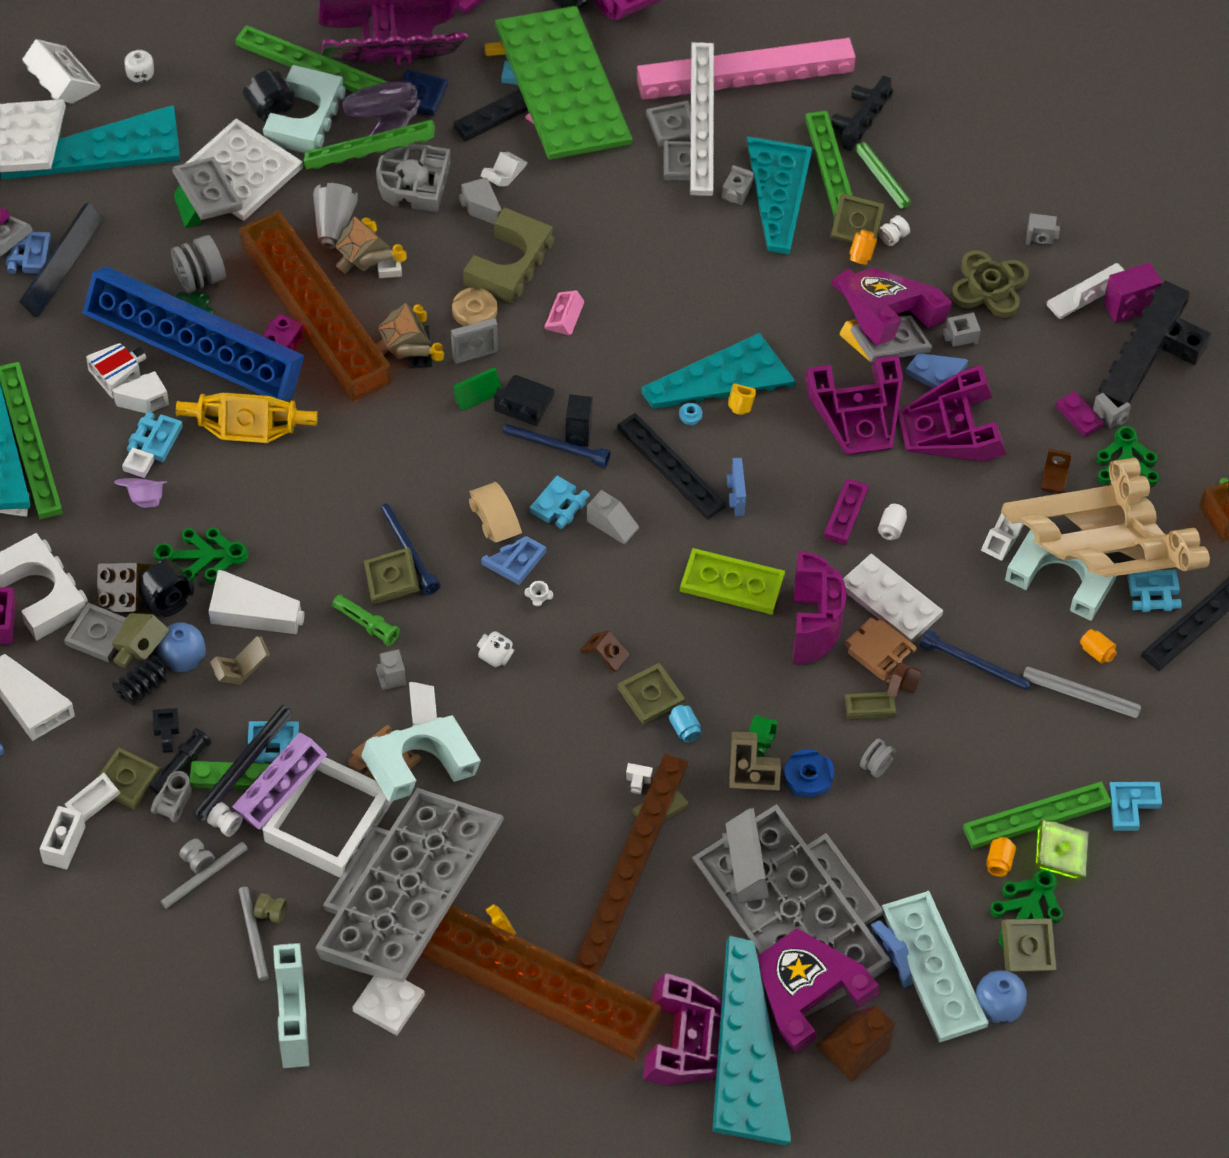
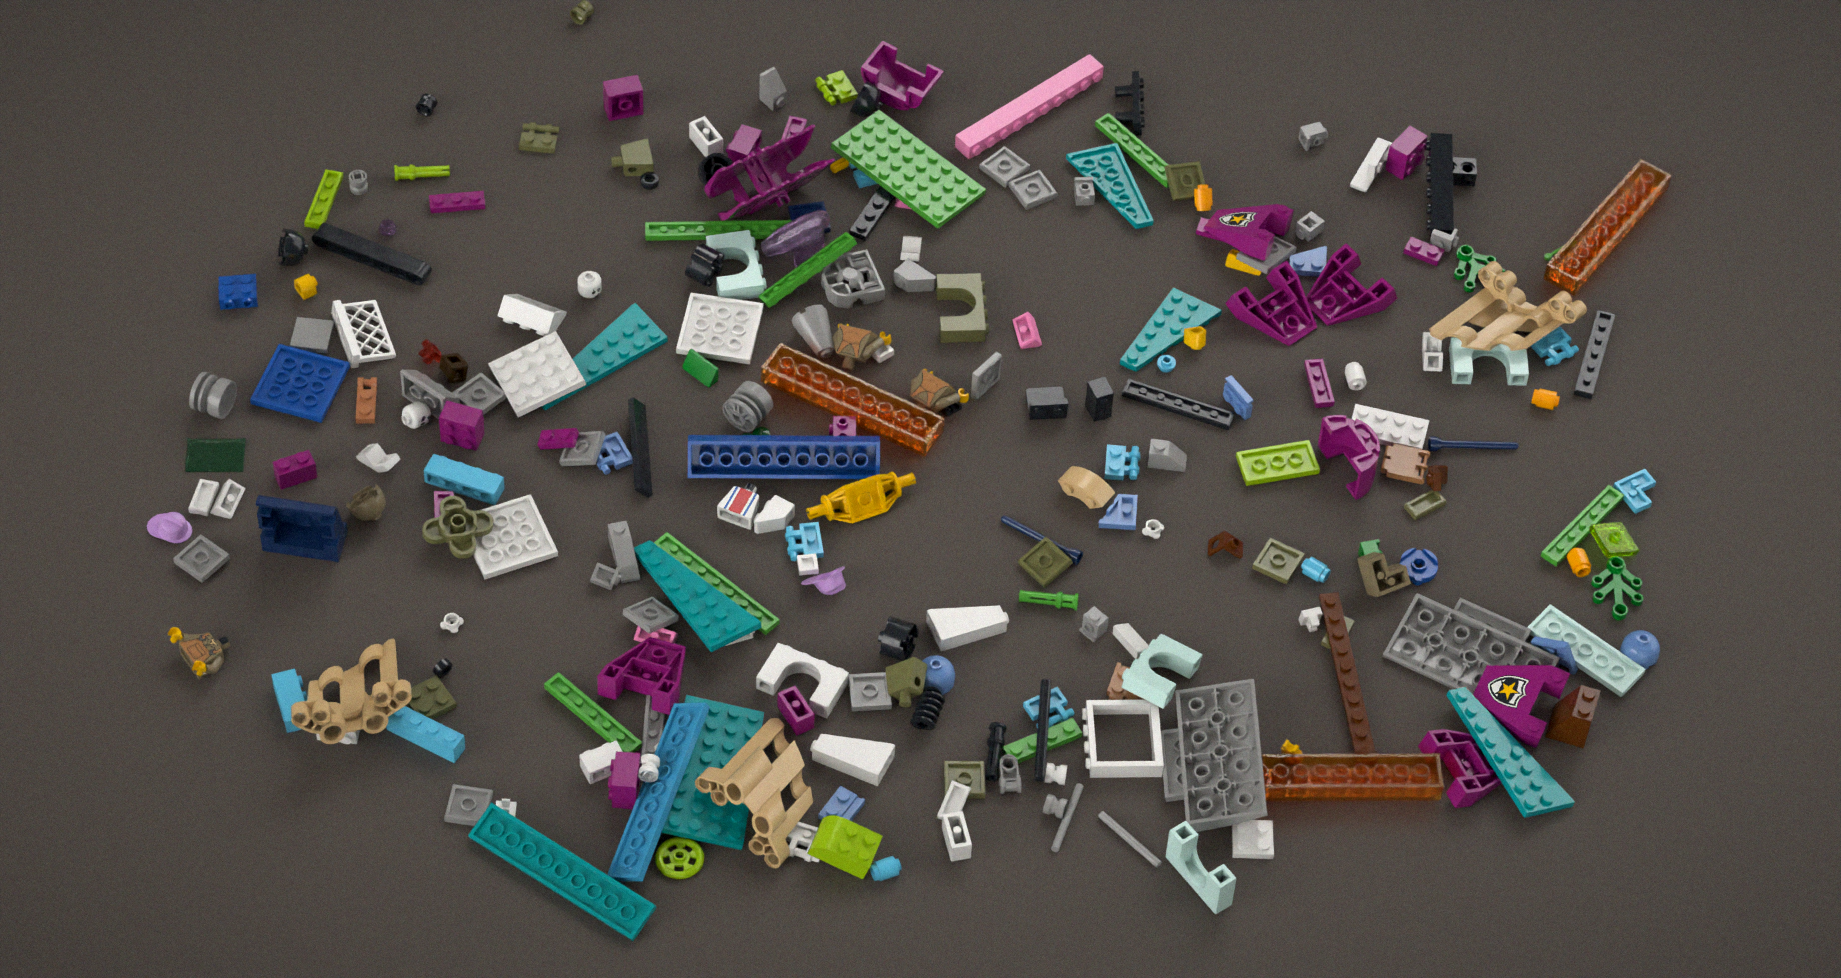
camera: 30 degrees left, 5 degrees down
(119, 586) = (866, 652): bracket -> none
(165, 724) = (967, 730): black plate -> none
(205, 554) = (901, 605): green plant -> none
(207, 188) = (712, 350): light grey tile -> none
(239, 669) = (991, 664): dark tan bracket -> none
(270, 908) = (1131, 816): olive wheel -> none
(279, 780) = (1080, 728): lavender brick -> none
(473, 306) = (961, 355): tan tile -> none
(476, 389) = (1008, 410): green slope -> none
(495, 649) = (1154, 578): white head -> none
(599, 456) = (1125, 419): dark blue piece -> none
(702, 119) = (1030, 153): white plate -> none
(745, 858) = (1426, 633): light grey slope -> none
(877, 758) = (1460, 534): light grey wheel -> none
(883, 175) = (1177, 142): bright green axle -> none
(894, 230) = (1214, 177): white wheel -> none
(990, 284) = (1304, 187): olive plant -> none
(1028, 945) = (1637, 608): olive plate -> none
(1056, 472) = (1437, 296): reddish brown bracket -> none
(1082, 692) = (1554, 433): light grey axle -> none

